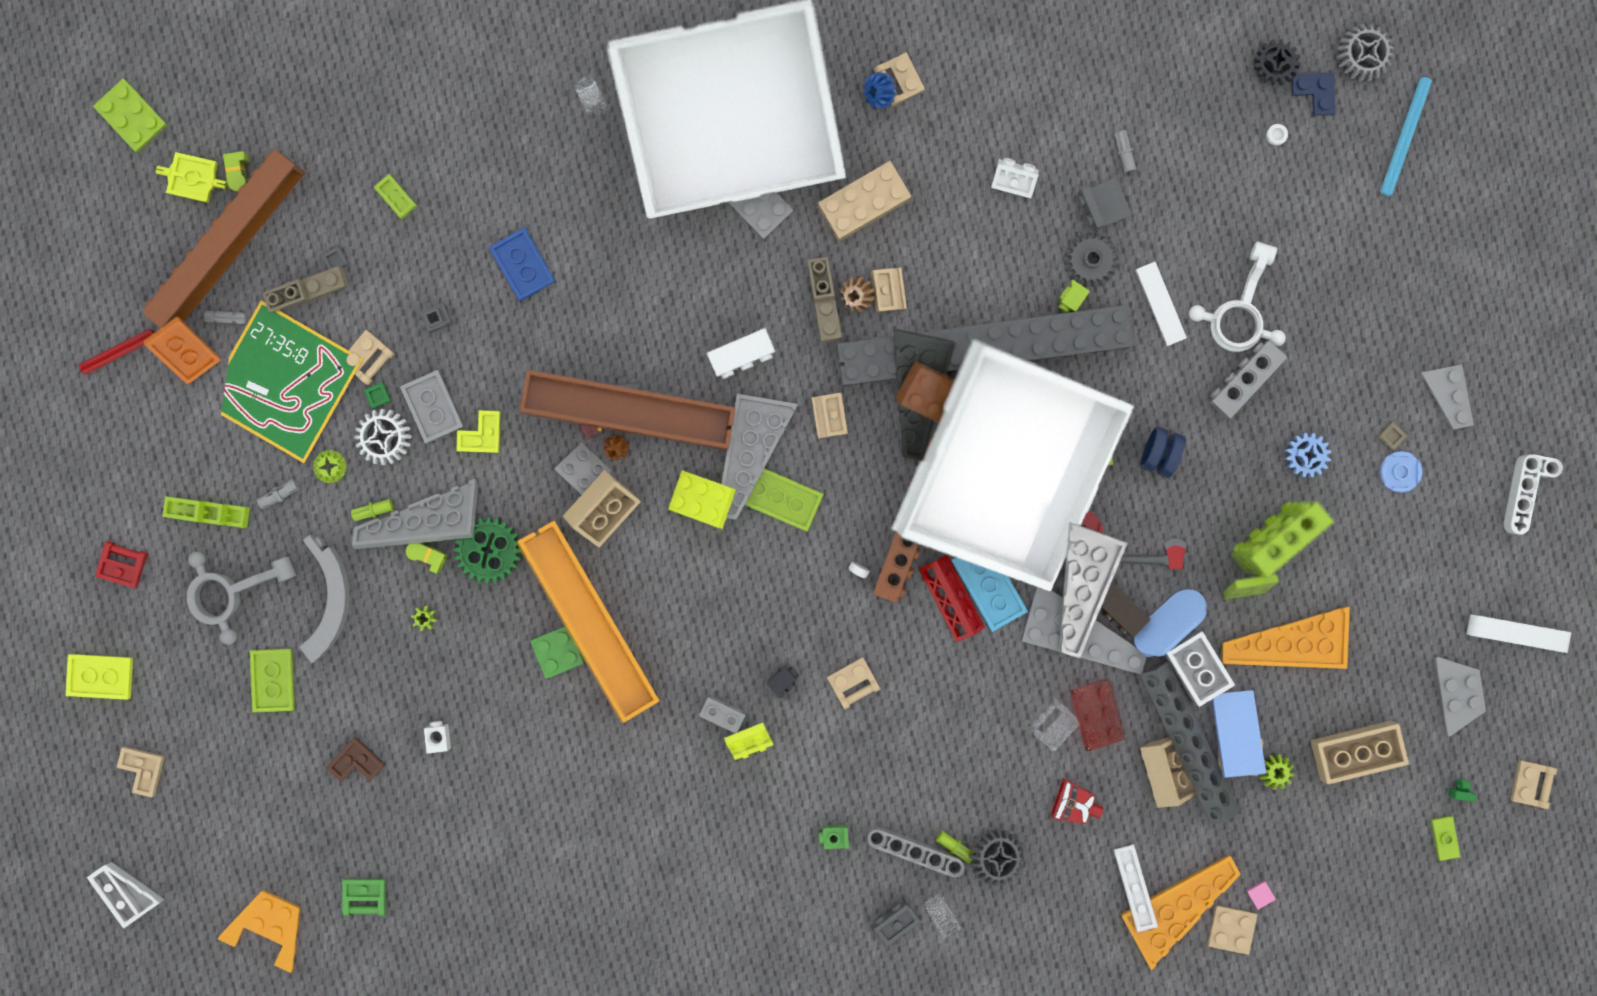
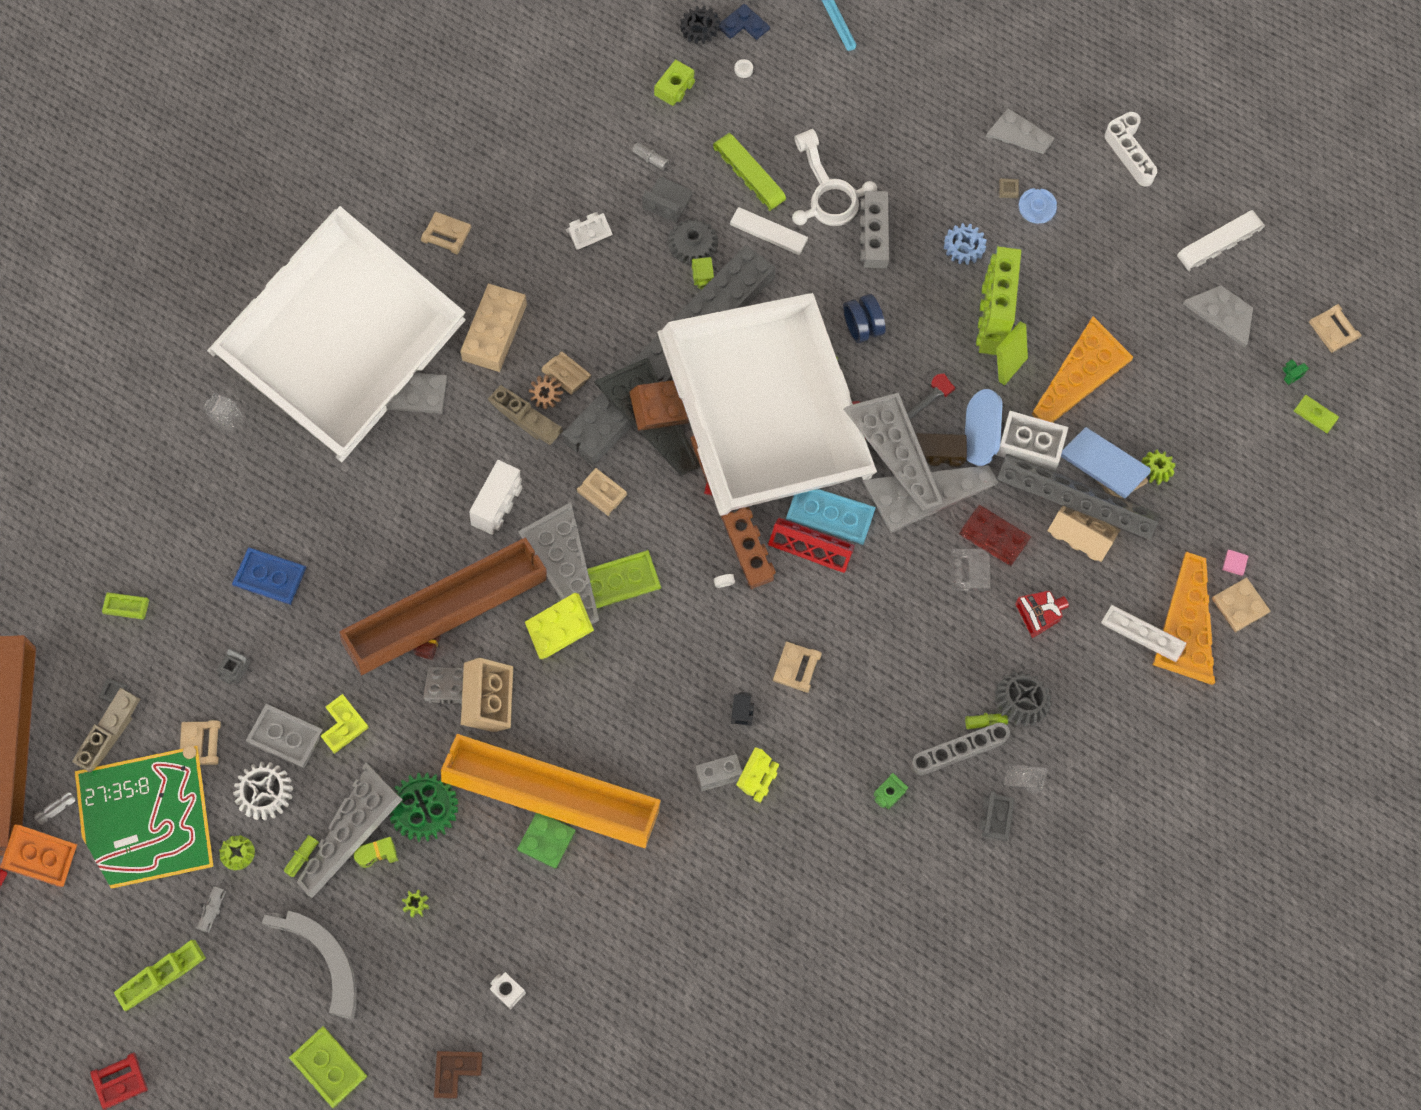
camera: 45 degrees left, 20 degrees down
(281, 570) = (262, 966): light grey piece -> none
(377, 395) = (232, 765): green tile -> none
(616, 447) = (454, 641): dark orange gear -> none
(879, 90) = (438, 247): blue gear -> none
(1193, 237) = (750, 171): none -> lime beam
(1215, 93) = (675, 74): none -> lime brick
(1359, 752) = (1198, 403): tan brick -> none

